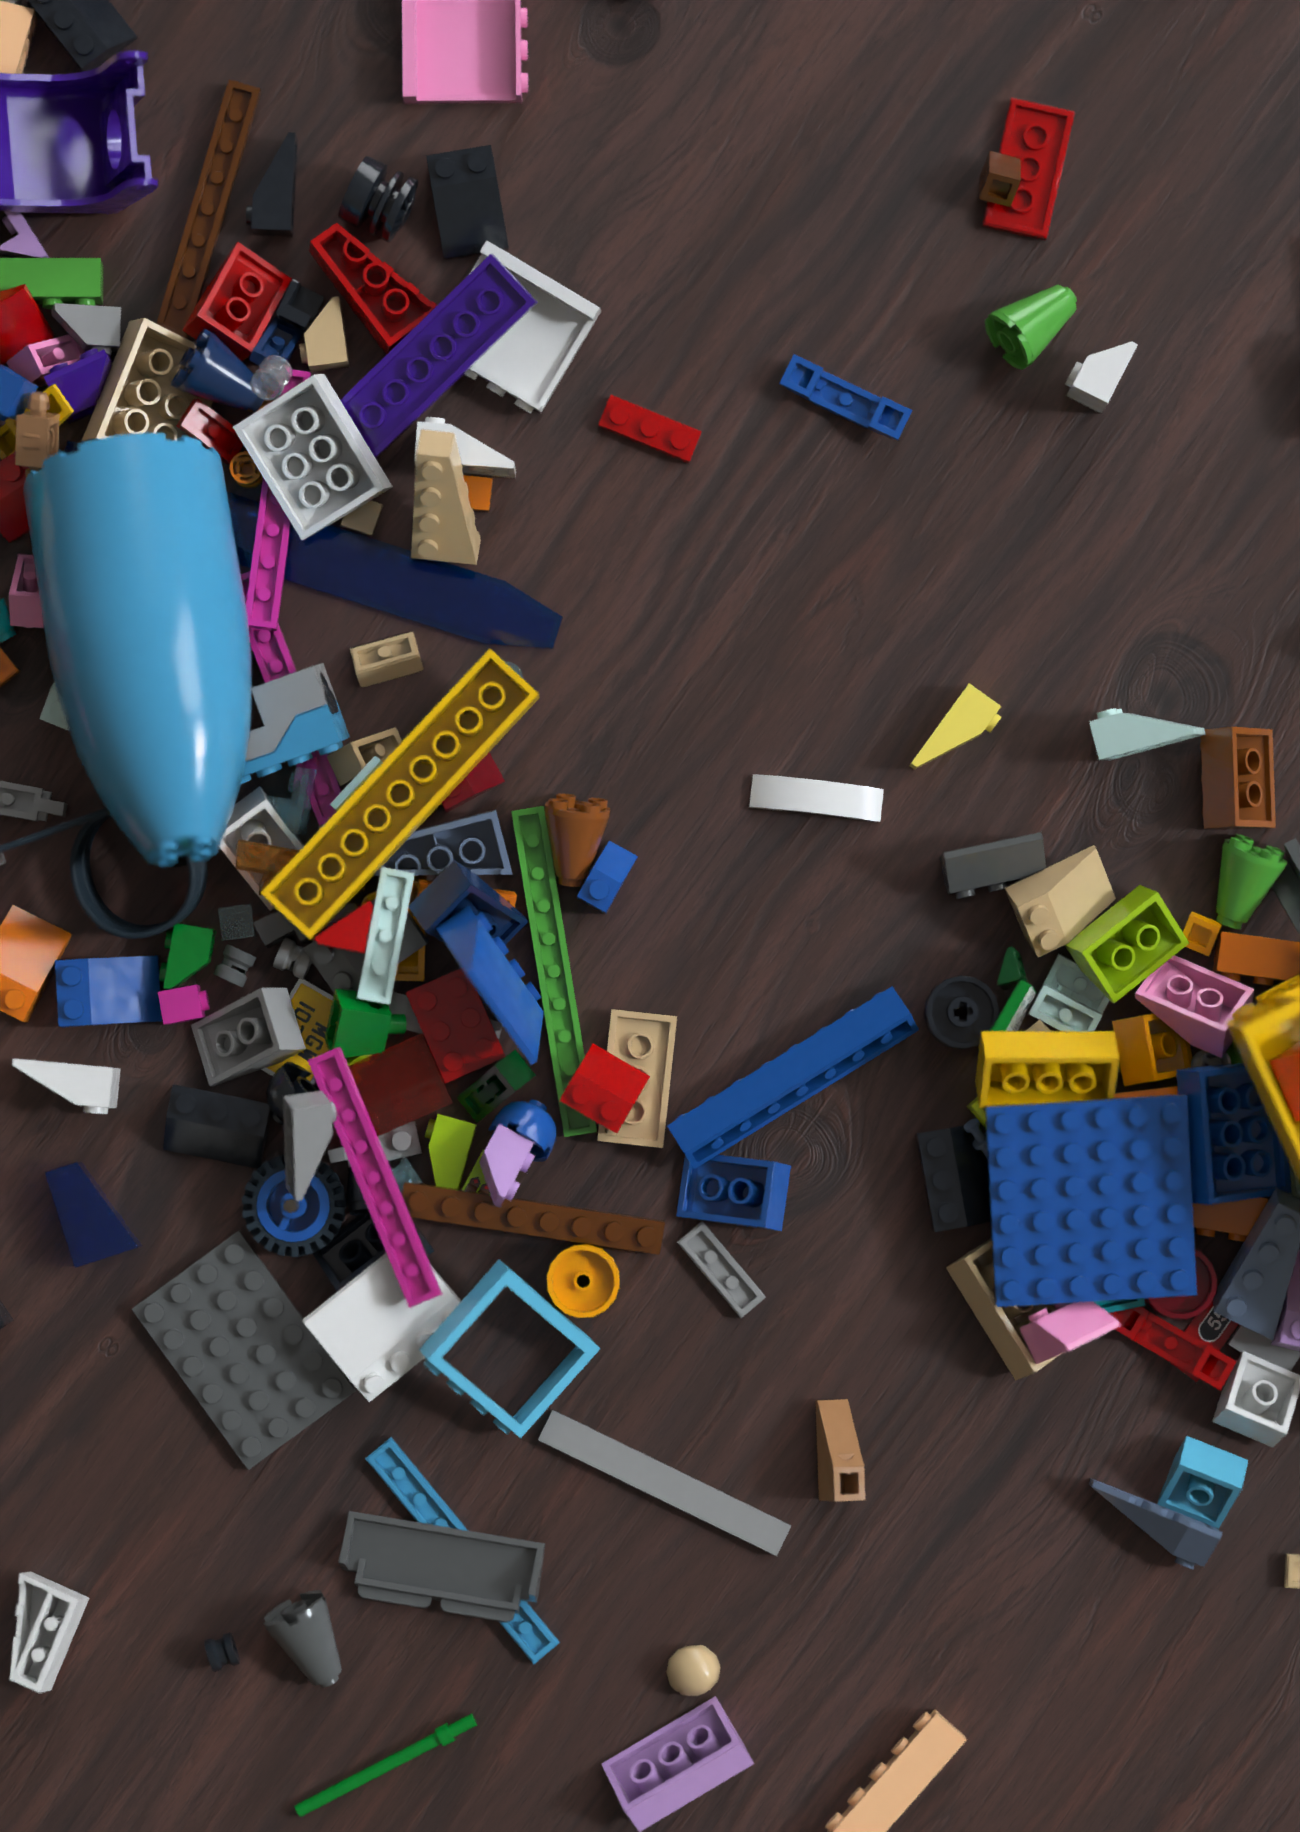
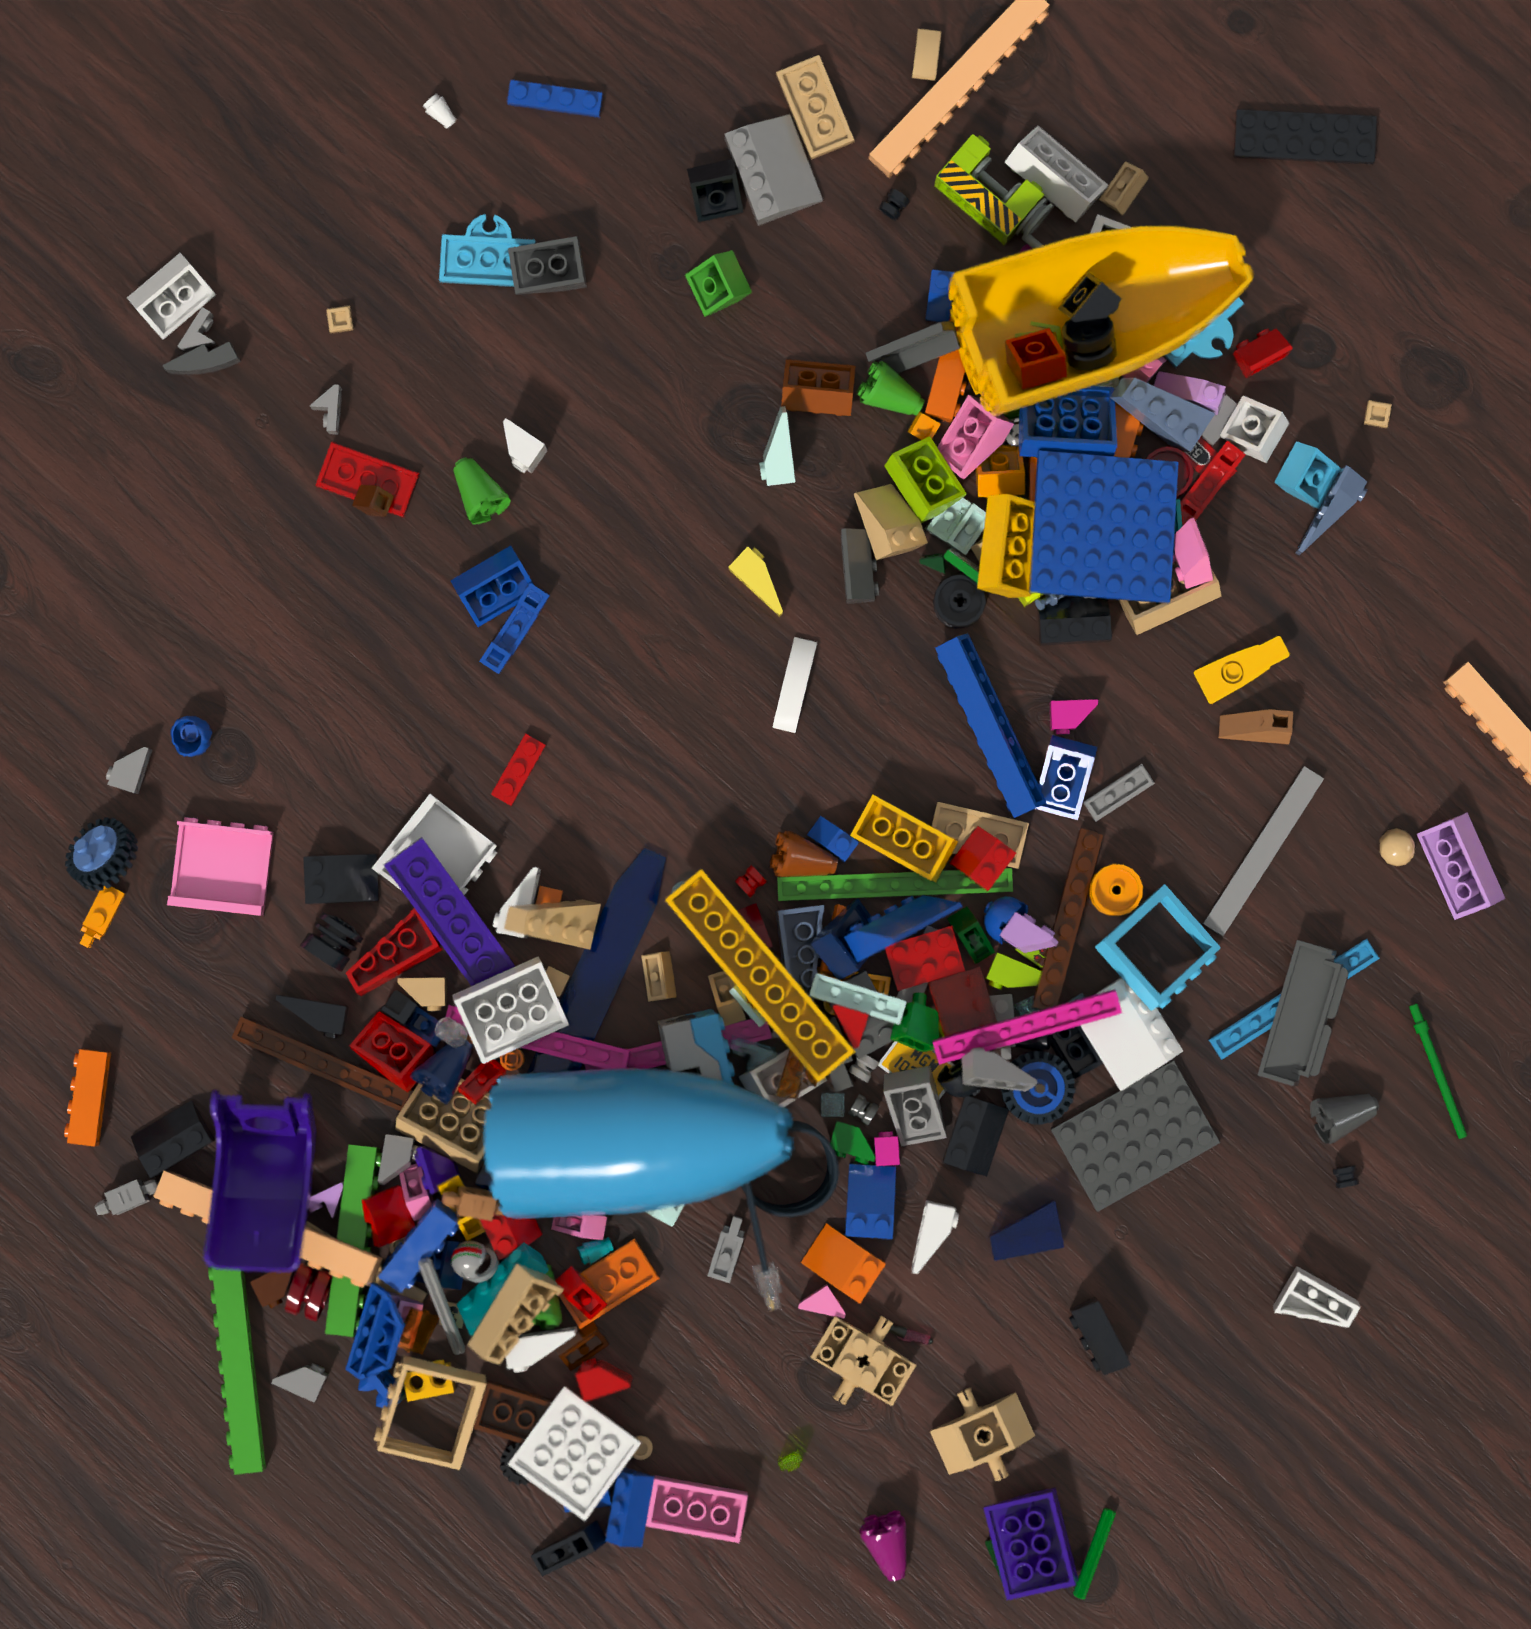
camera: 75 degrees left, 0 degrees up
(534, 769) = (750, 881): none -> red wheel
(618, 975) = (904, 838): none -> yellow brick
(822, 1186) = (1069, 714): none -> dark pink slope
(901, 359) = (492, 586): none -> blue slope
(917, 1418) = (1239, 668): none -> yellow piece
(1130, 104) = (330, 402): none -> light grey slope
(1248, 102) = (339, 319): none -> tan tile

